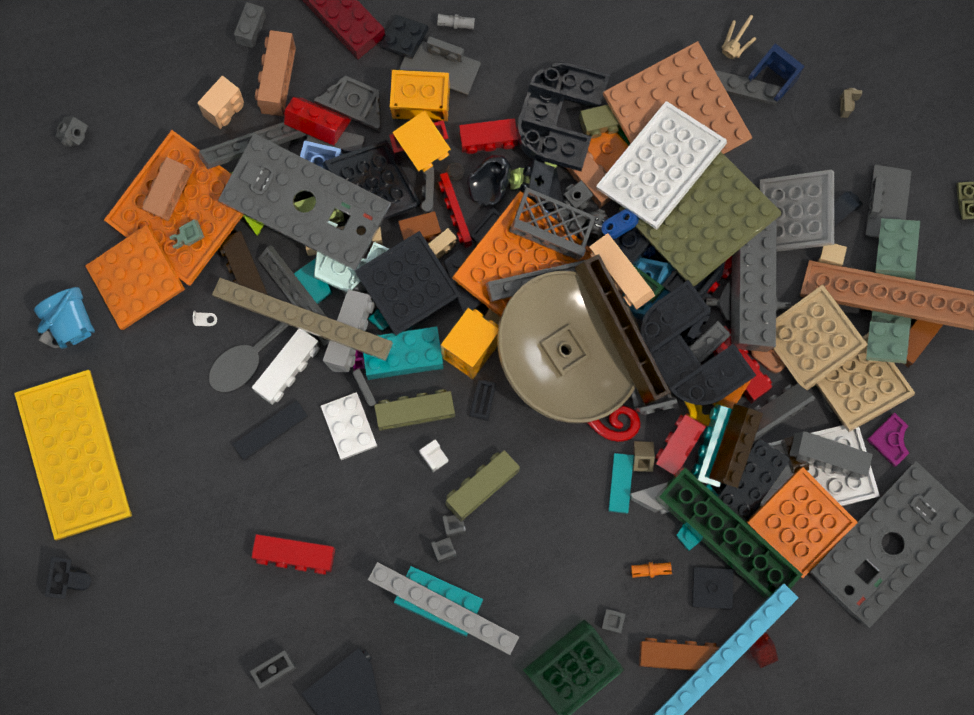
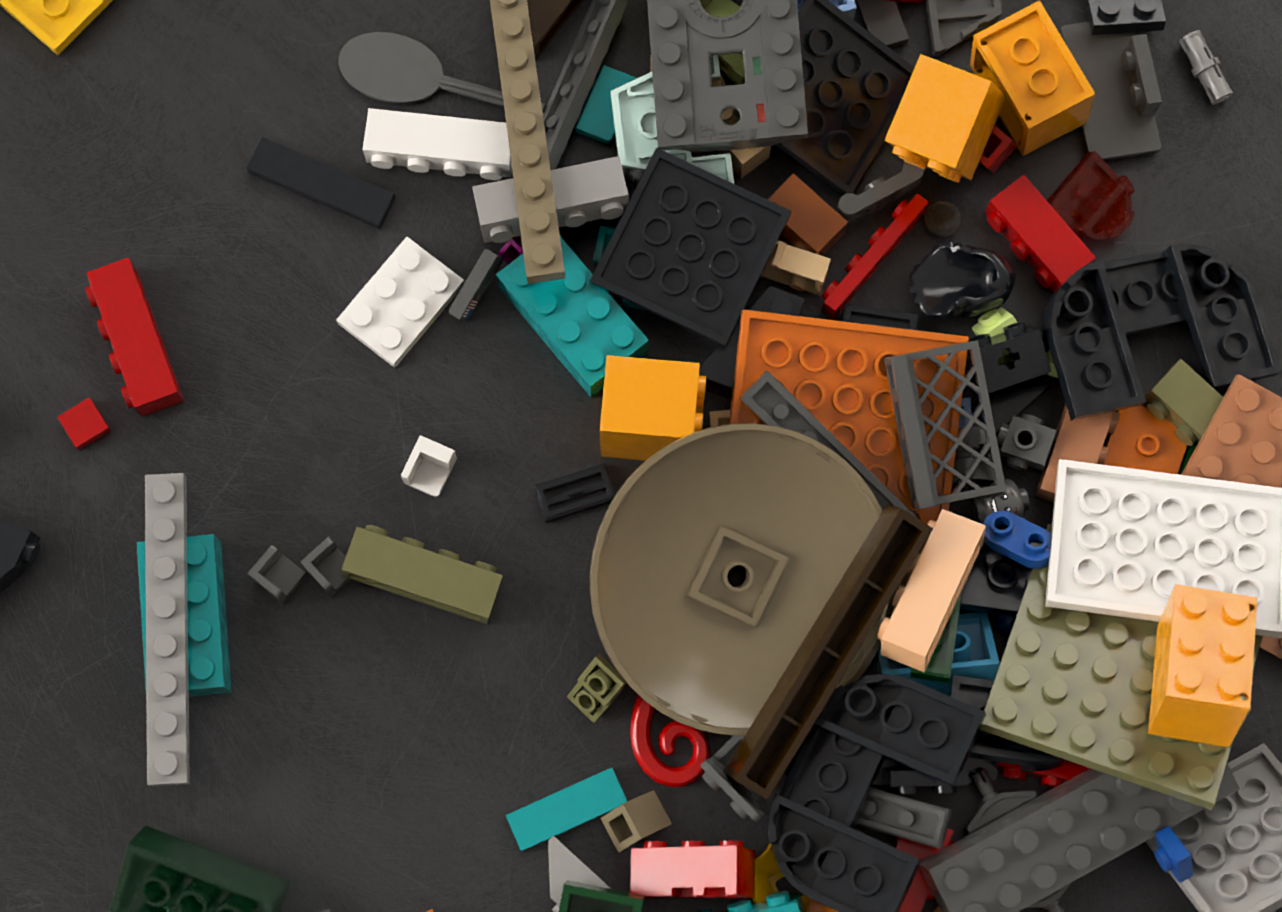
camera: 60 degrees right, 0 degrees up
(319, 599) = (84, 423): none -> red tile
(415, 410) = (487, 390): olive brick -> none
(486, 103) = (1094, 200): none -> clear red slope
(578, 438) = (597, 688): none -> olive slope
(723, 180) = (1203, 666): none -> light orange container
(788, 242) = (1173, 855): none -> blue plate

